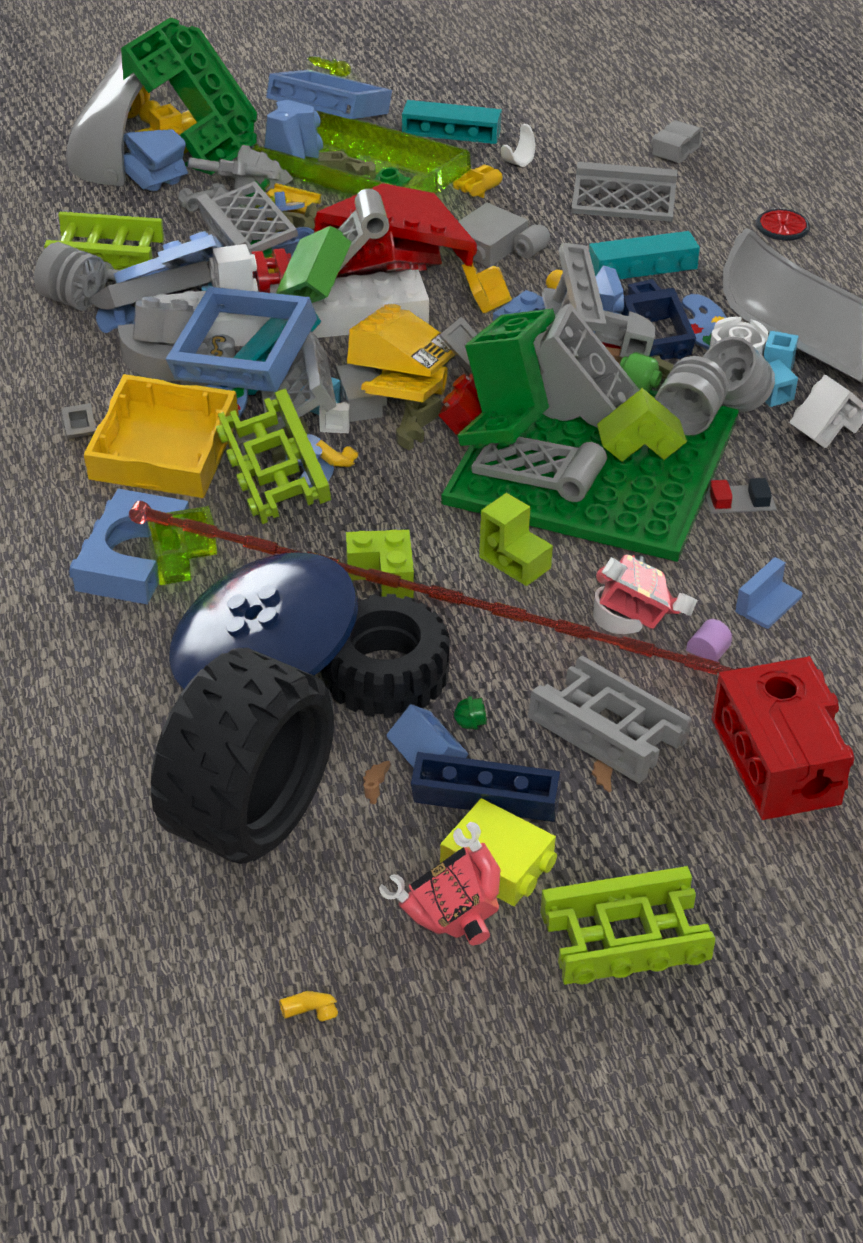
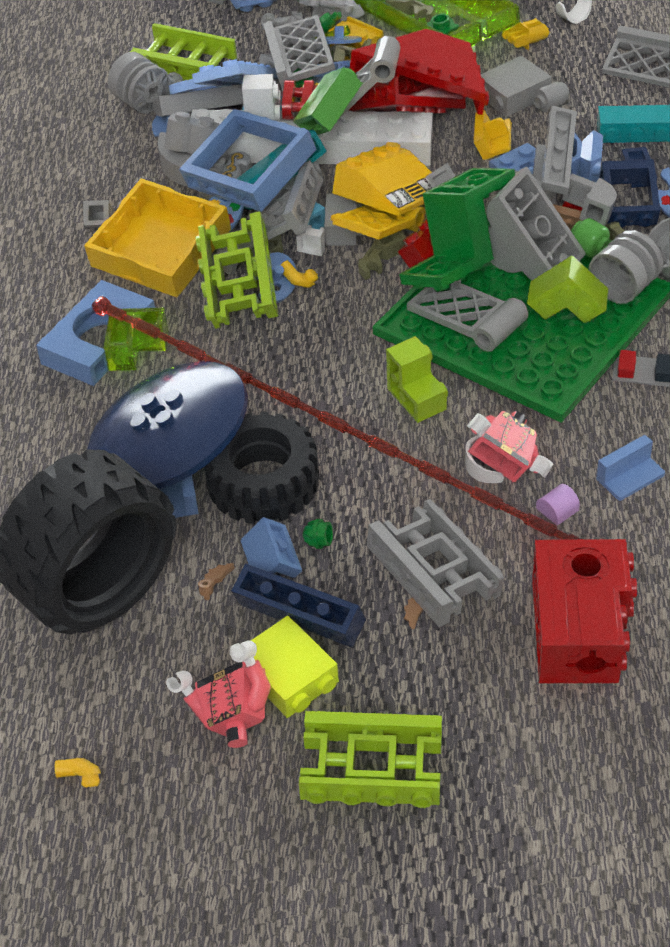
camera: 20 degrees right, 5 degrees up
(382, 551) = (299, 375): lime brick -> none

